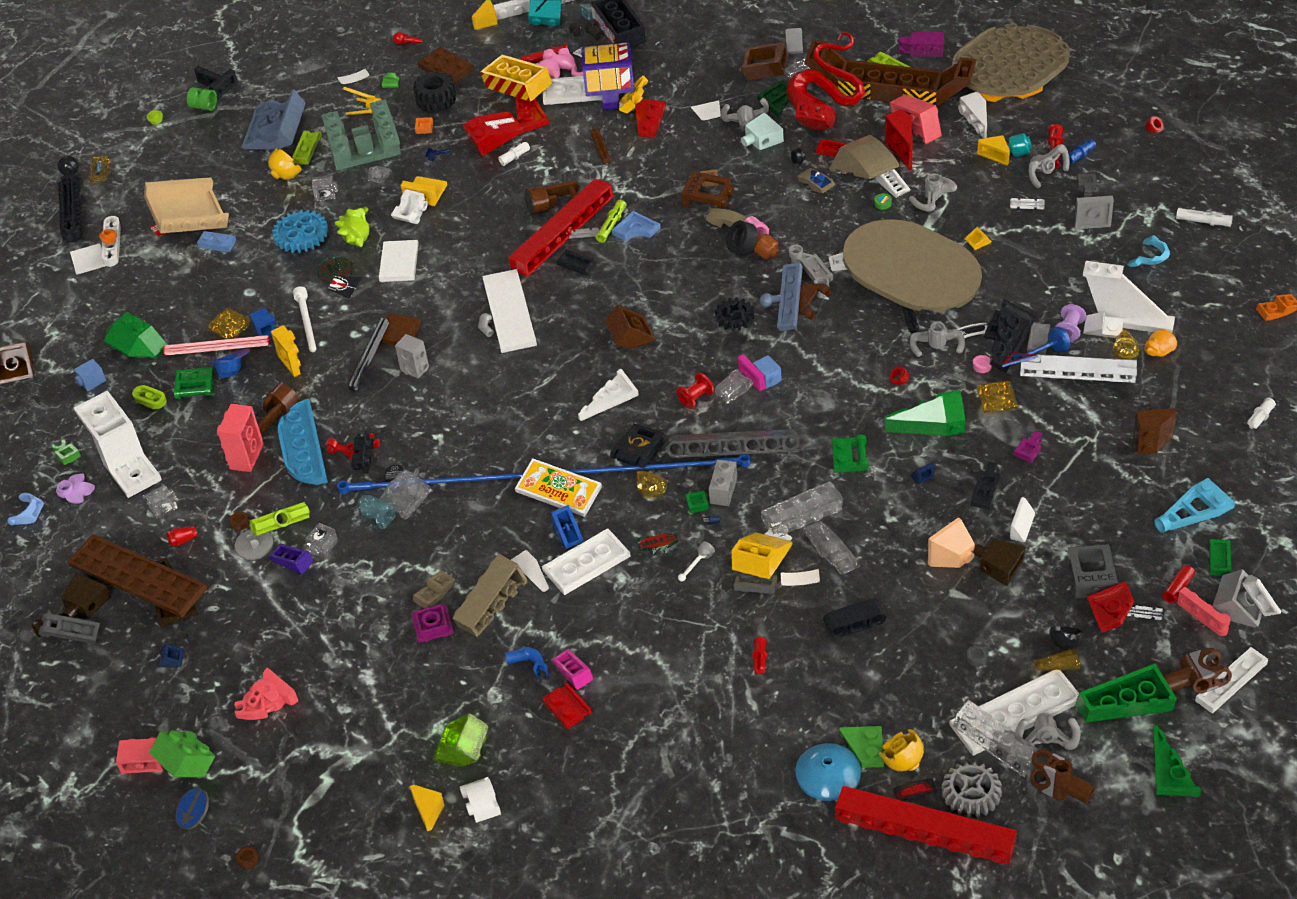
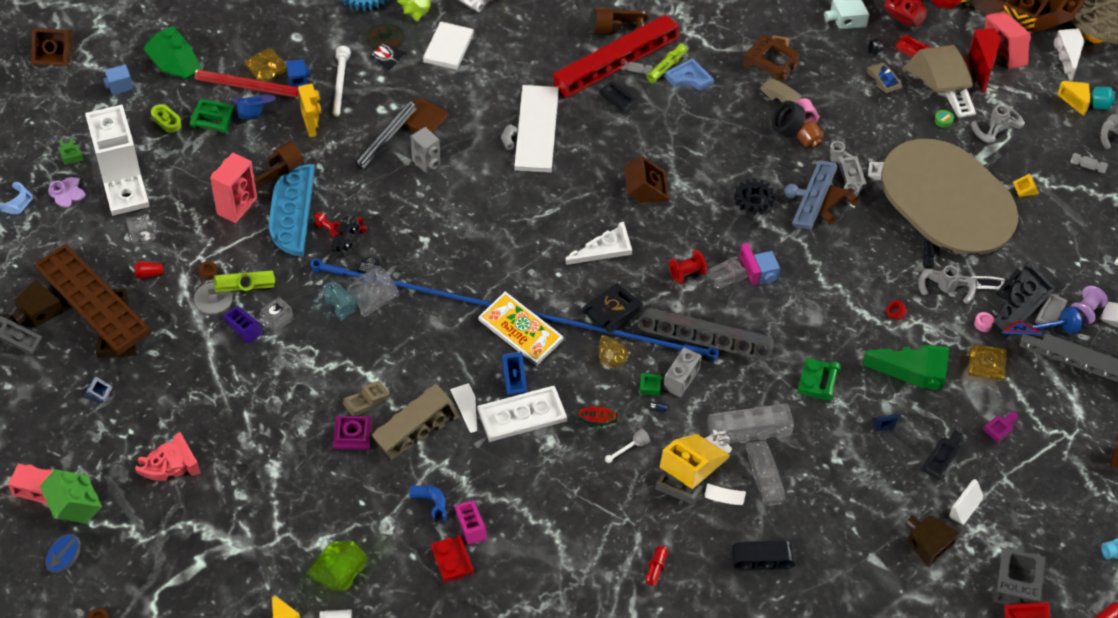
camera: 10 degrees right, 5 degrees up
(951, 546) = (885, 509): light nougat slope -> none

